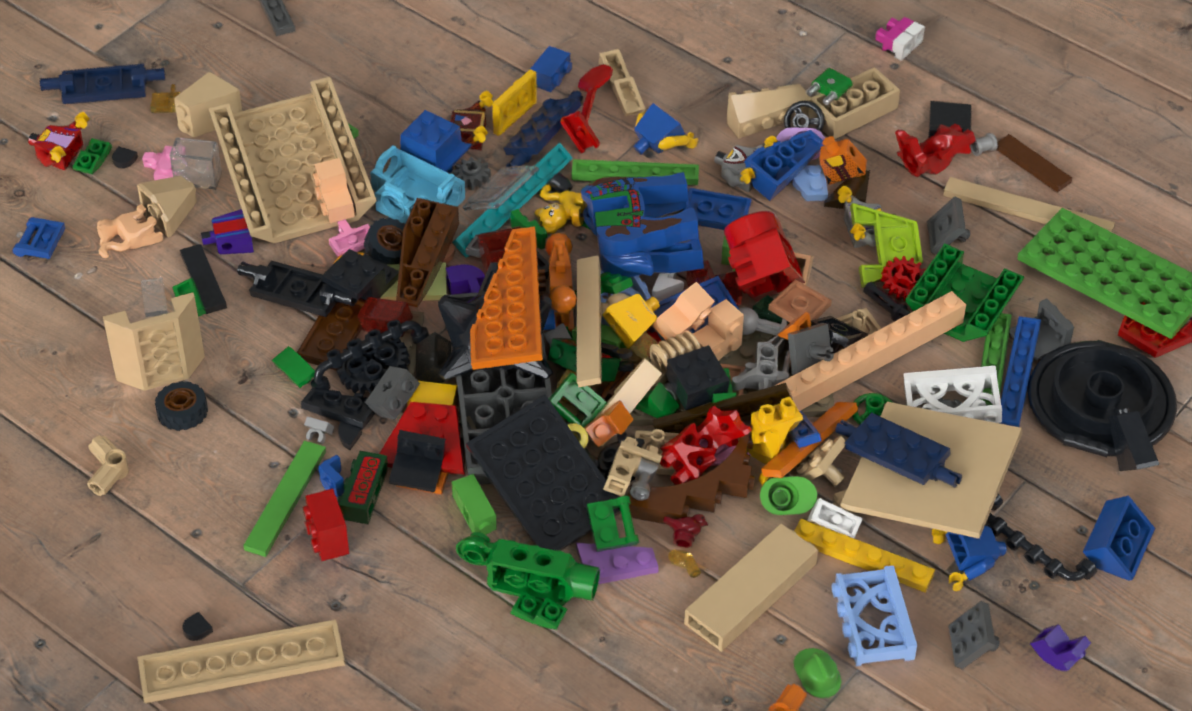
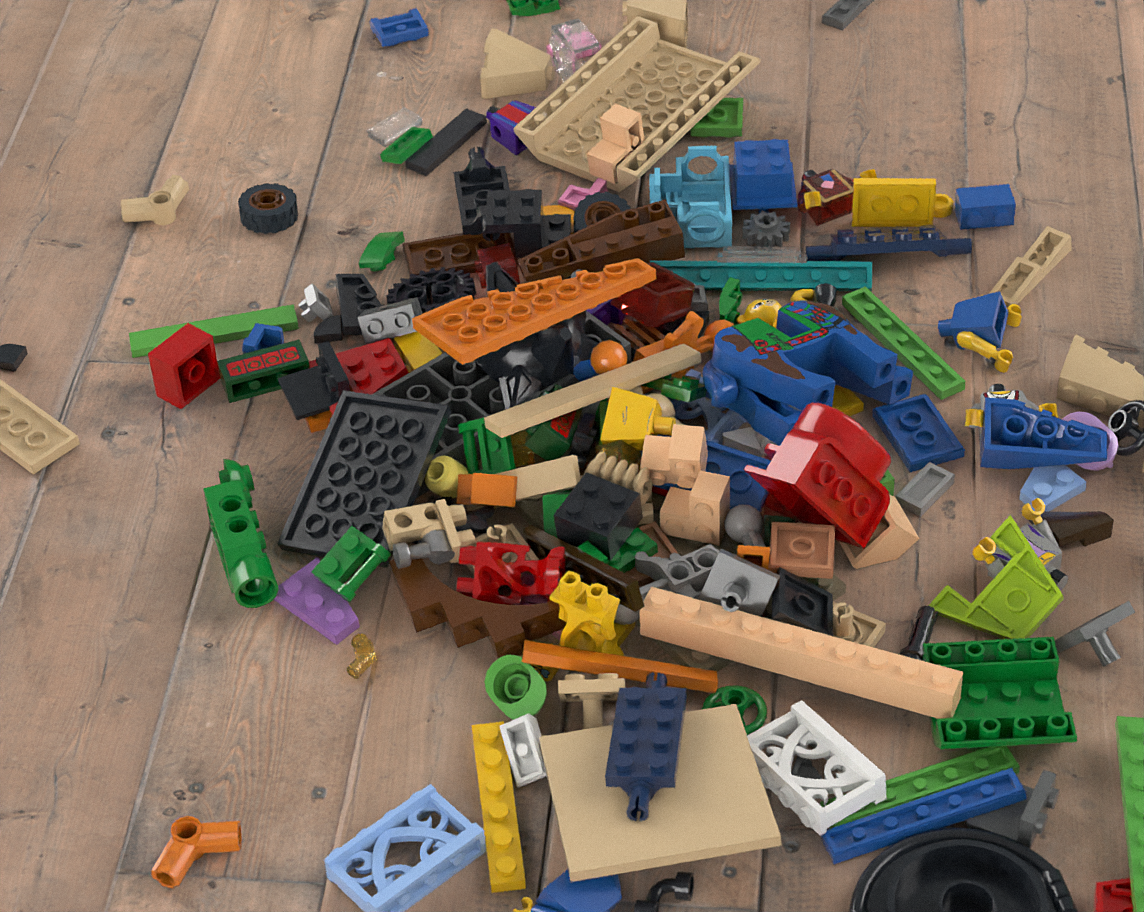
camera: 60 degrees right, 5 degrees down
(124, 157) = (550, 18): black tile -> none
(132, 228) = (455, 66): light nougat animal -> none
(156, 348) = (308, 144): tan slope -> none
(357, 349) = (423, 268): black bar -> none
(474, 505) = (294, 460): bright green brick -> none
(544, 614) = (204, 574): green slope -> none
(577, 123) = (903, 264): red piece -> none
(686, 529) = (406, 632): dark red animal -> none
(751, 587) = (365, 725): tan brick -> none
(805, 433) = (625, 650): blue tile -> none
(817, 672) = (290, 846): bright green piece -> none
(841, 160) = (1091, 482): orange torso -> none
(904, 278) = (968, 624): red gear -> none

